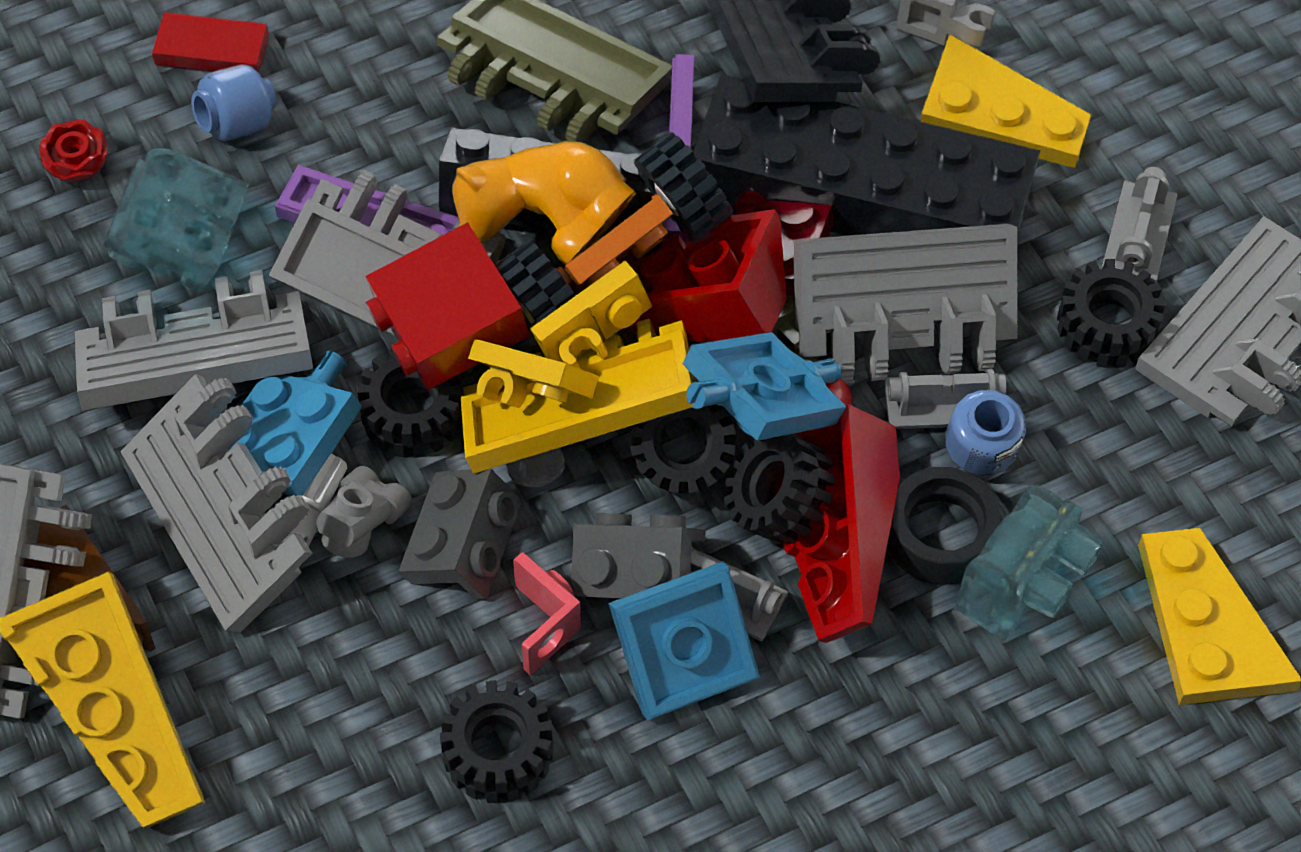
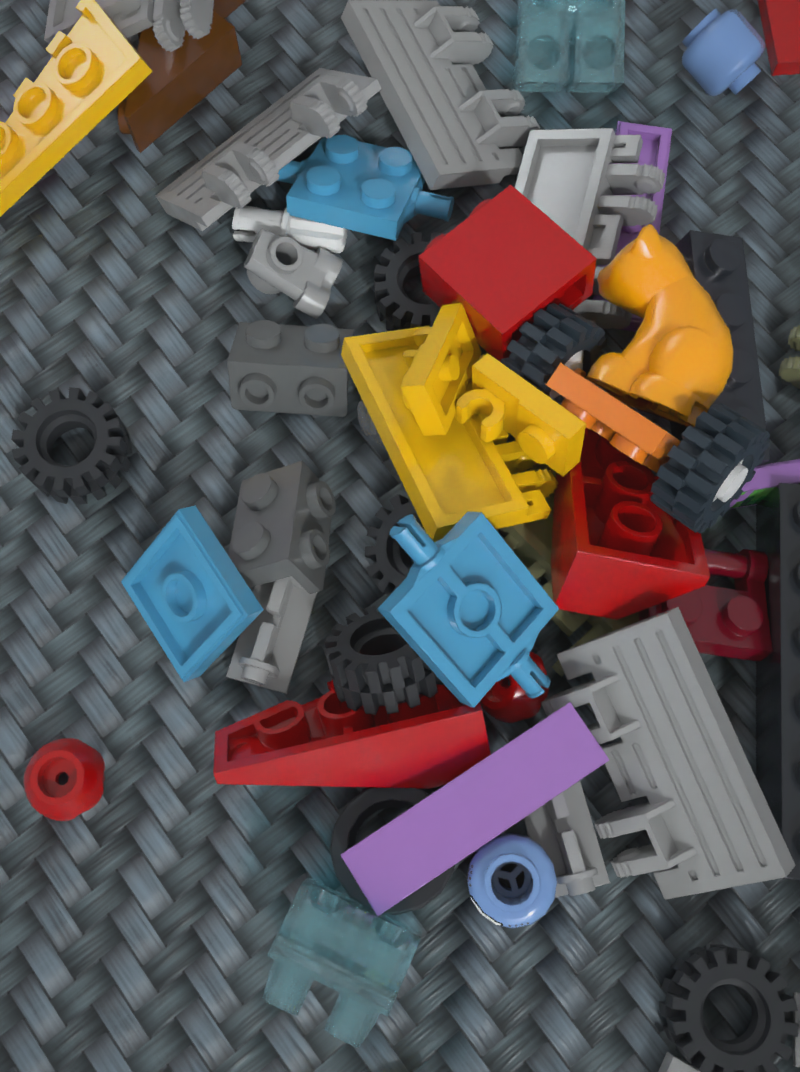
camera: 80 degrees right, 15 degrees up
(557, 600) = (230, 464): coral bracket -> none
(827, 811) = (84, 783): none -> red plate
(925, 438) = (474, 808): none -> medium lavender tile

